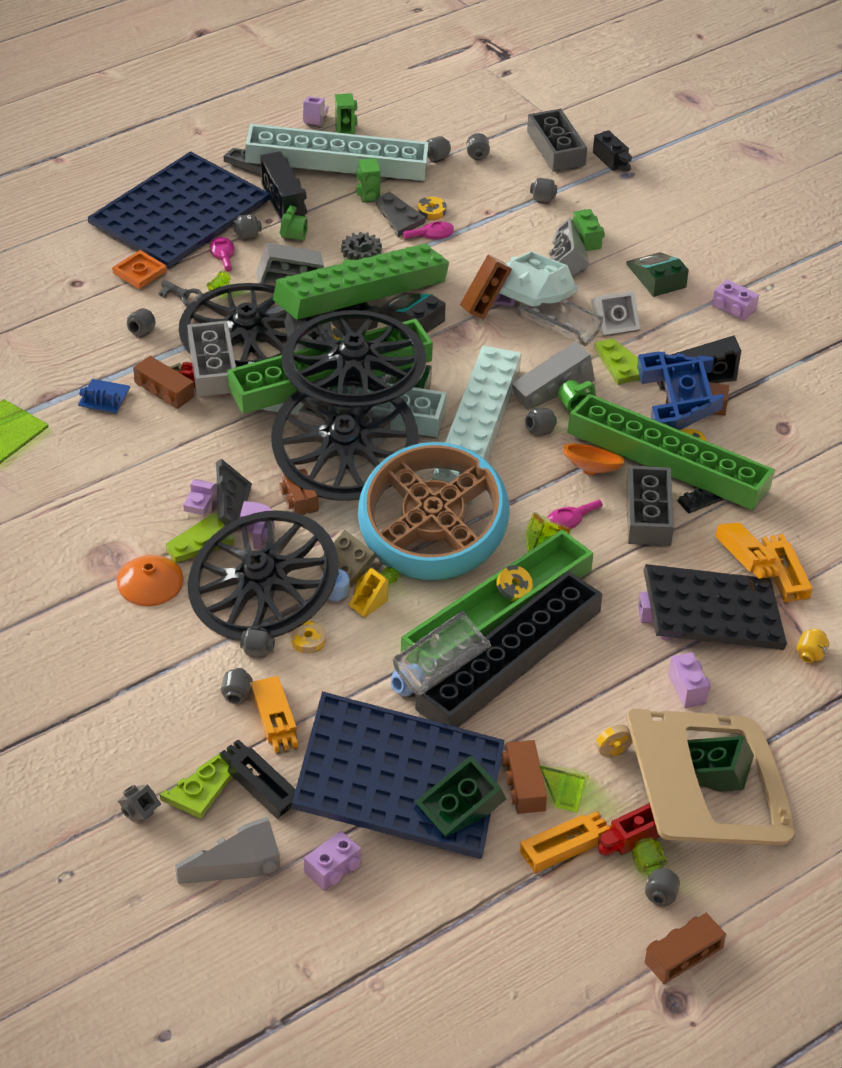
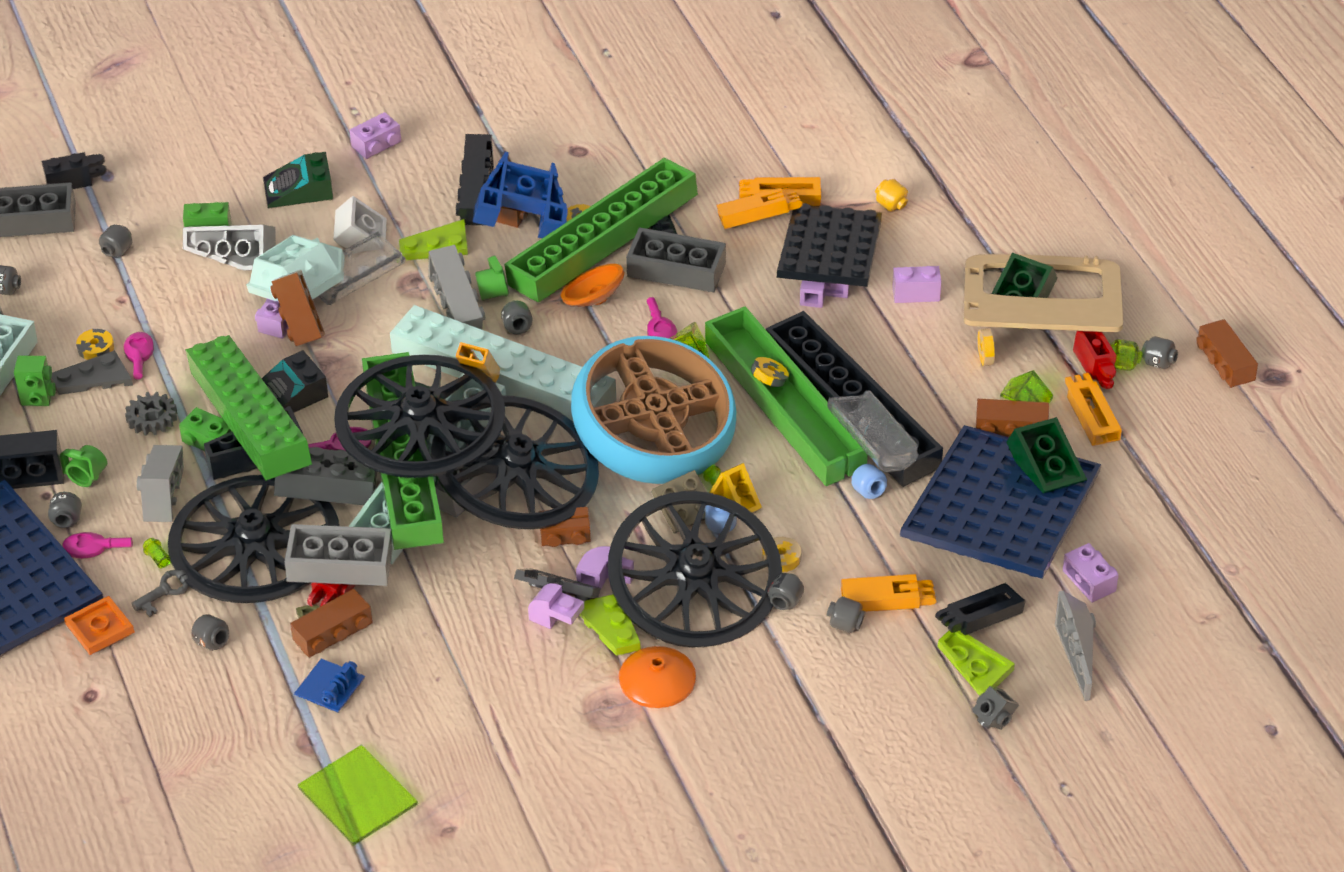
camera: 75 degrees left, 0 degrees up
(432, 384) = (489, 366): none -> light orange hinge

